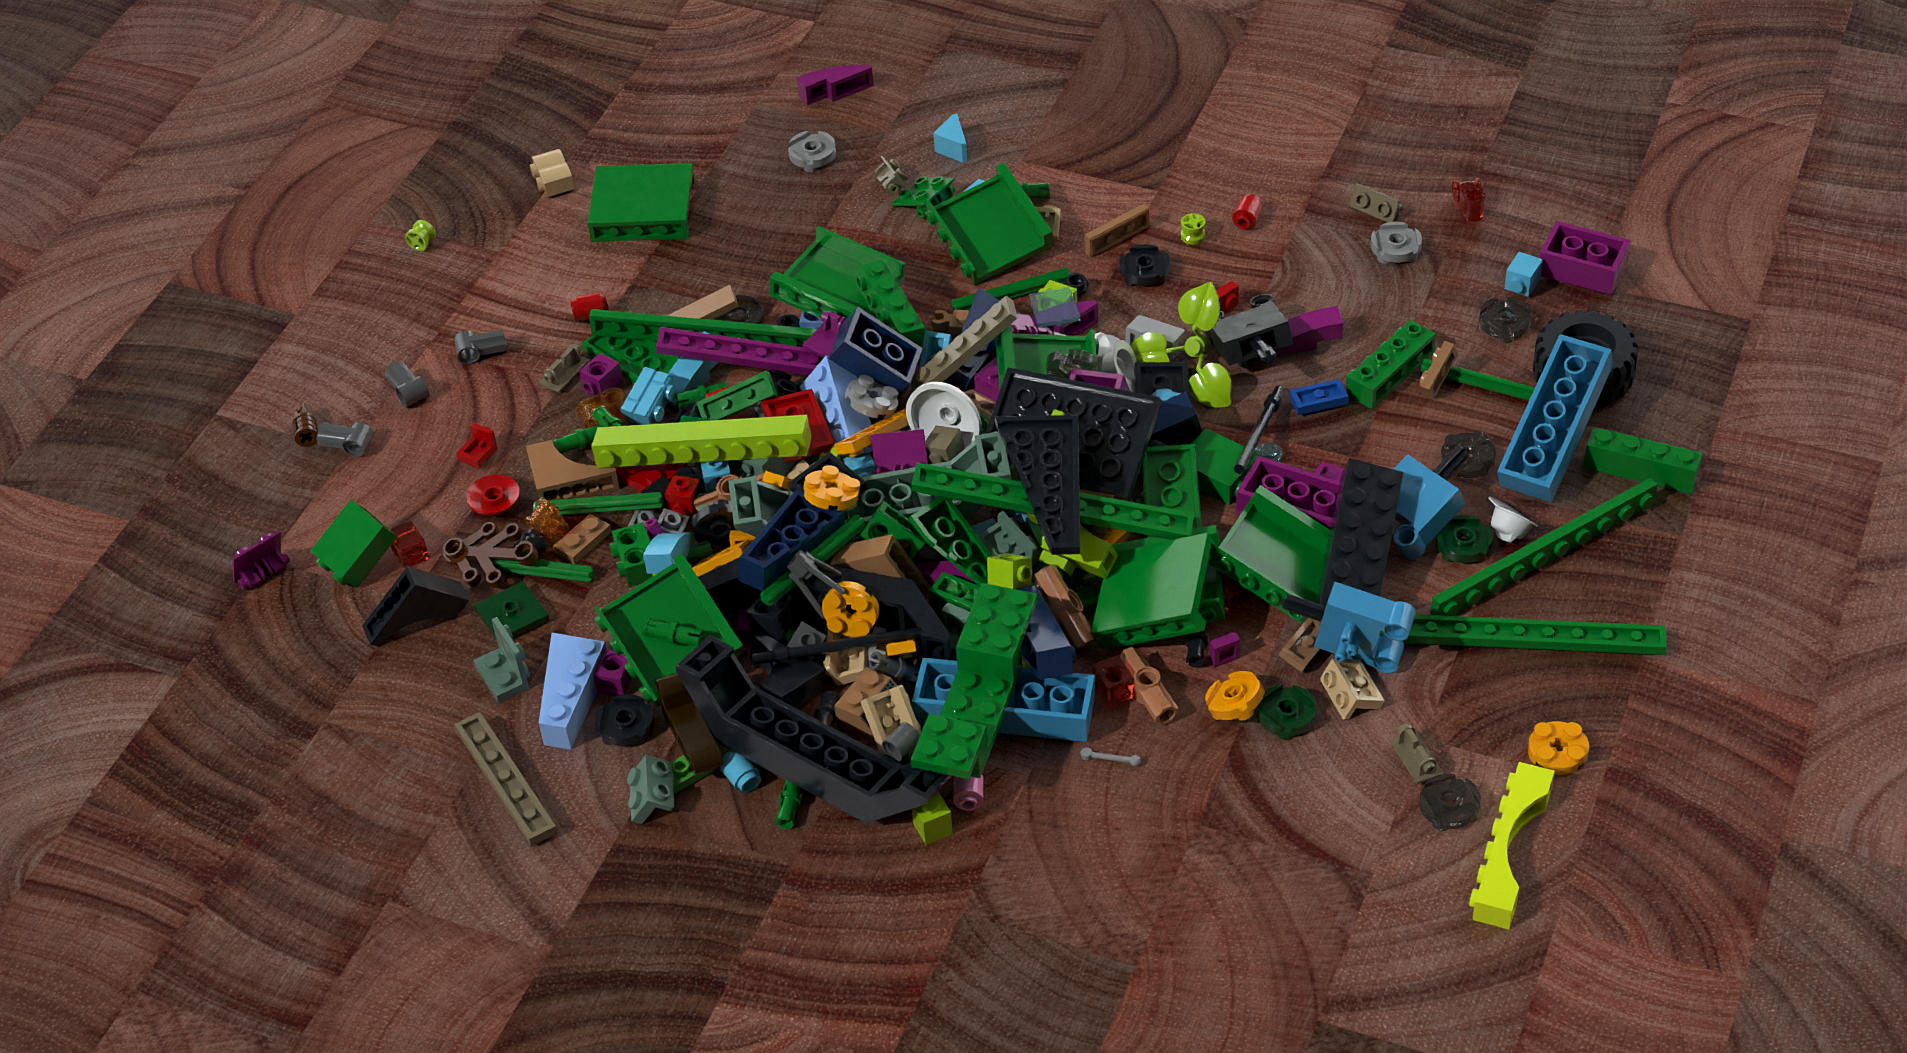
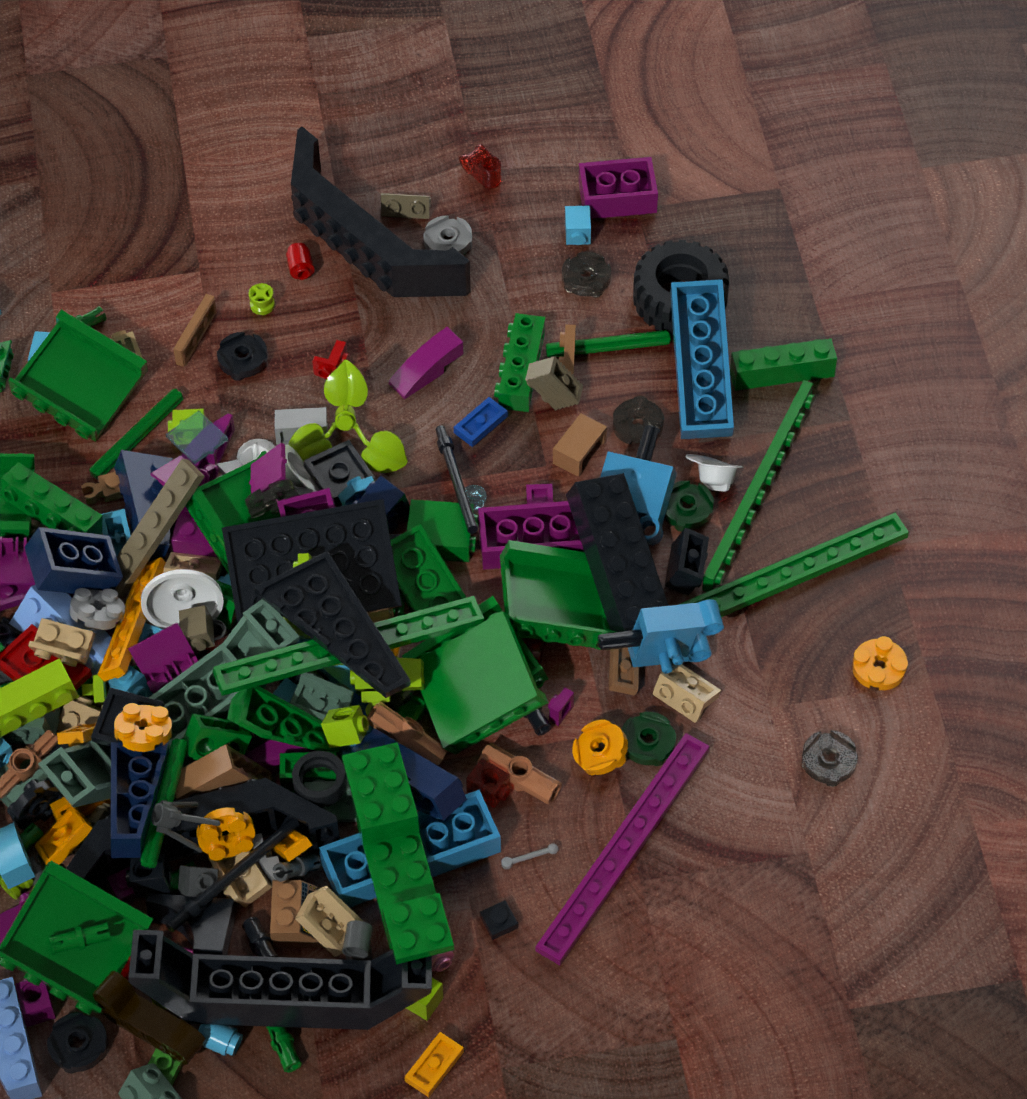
camera: 35 degrees left, 10 degrees up
(823, 409) = (63, 642): none -> tan bracket
(903, 878) = (434, 1064): none -> light orange plate
(950, 587) = (314, 760): none -> black tyre
(1045, 794) = (499, 920): none -> black plate
(1079, 282) = (193, 396): black plate -> none
(1089, 339) = (268, 469): none -> magenta piece
(1197, 787) = (621, 849): none -> magenta plate
(1251, 333) = (395, 385): pearl dark grey piece -> none
(1312, 214) = (365, 240): none -> black slope
(1395, 444) = (577, 443): none -> medium nougat panel
(1404, 387) = (554, 383): none -> dark tan brick
(1415, 754) = (776, 728): dark tan hinge -> none
(1427, 580) = (687, 561): none -> black brick
(1498, 890) = (919, 821): neon yellow arch -> none

